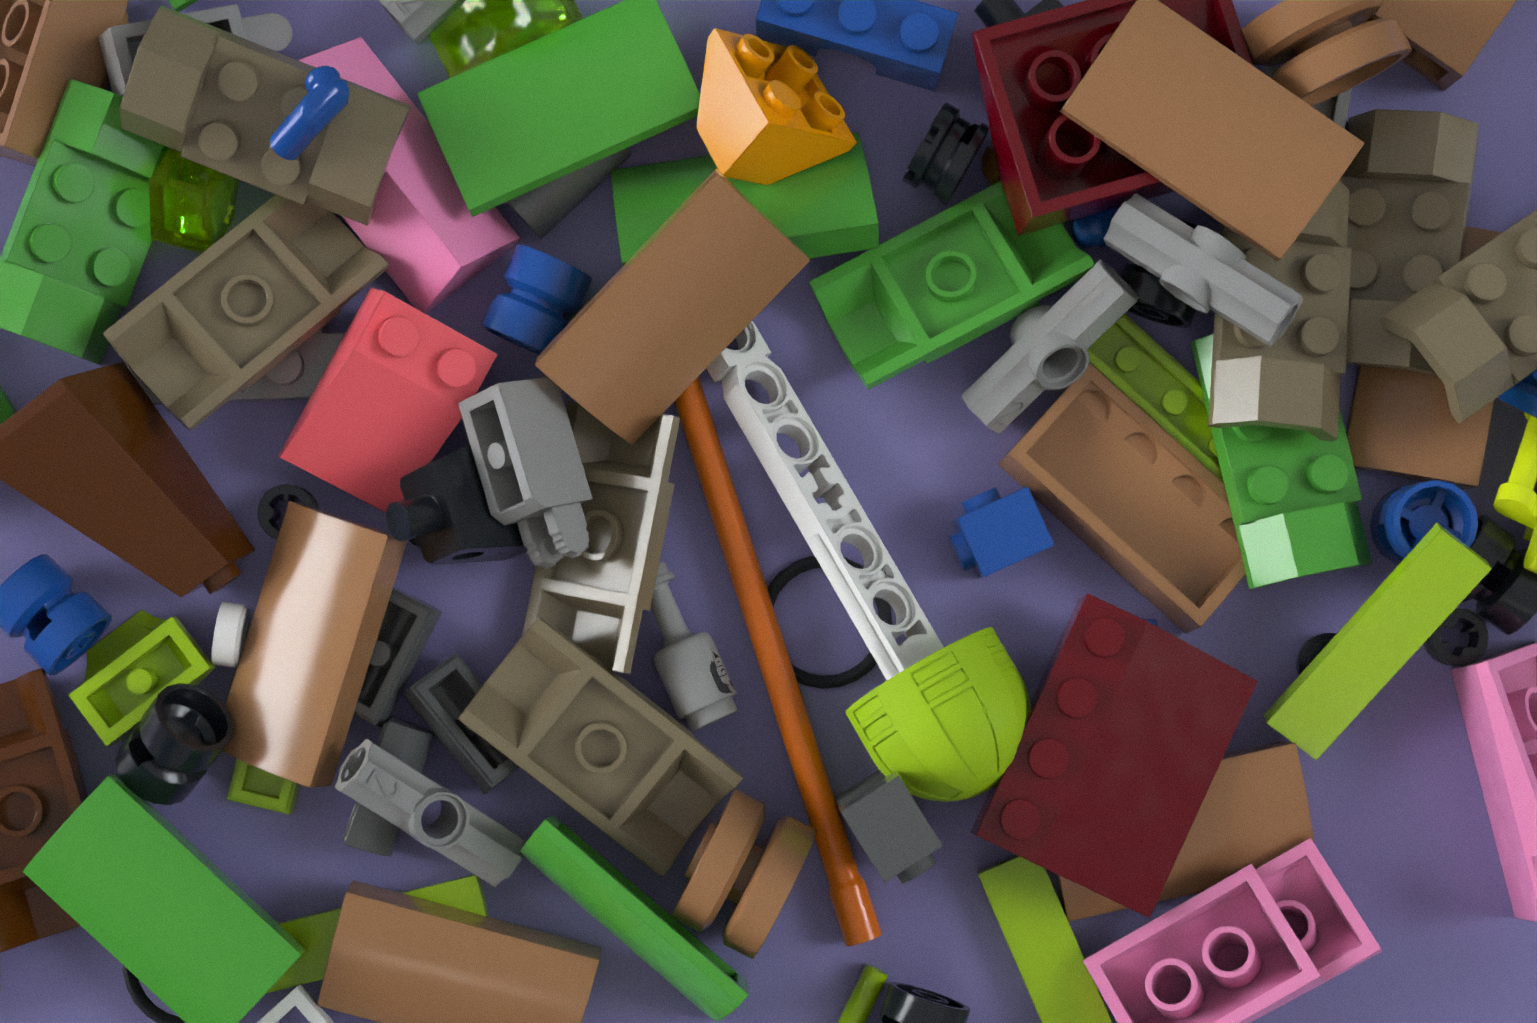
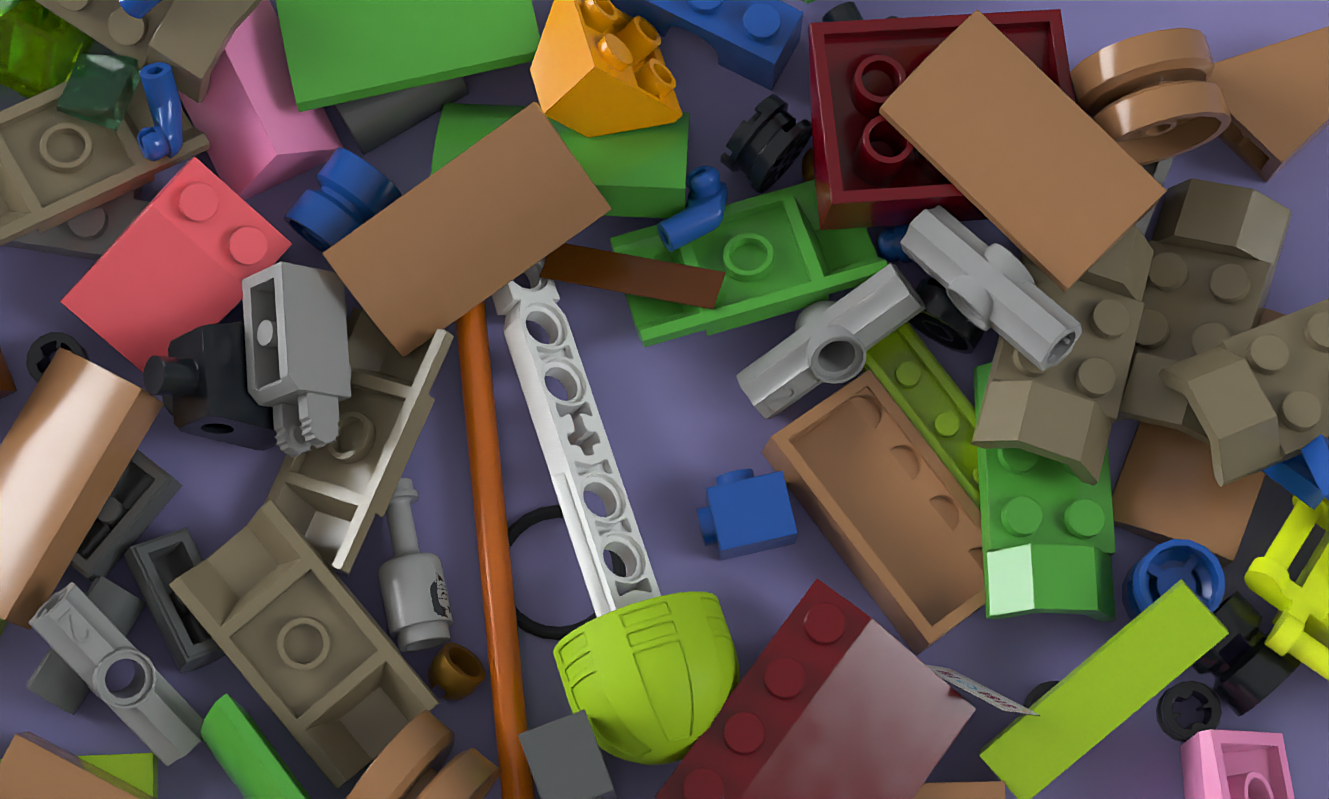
camera: 10 degrees right, 10 degrees down
(266, 233) = (100, 89): none -> clear green slope
(340, 245) = (166, 112): none -> blue arm
(749, 739) = (456, 671): none -> pearl gold hinge
(845, 317) = (634, 275): none -> reddish brown sticker
(897, 238) = (703, 209): none -> blue arm
(1255, 662) = (980, 691): none -> white sticker

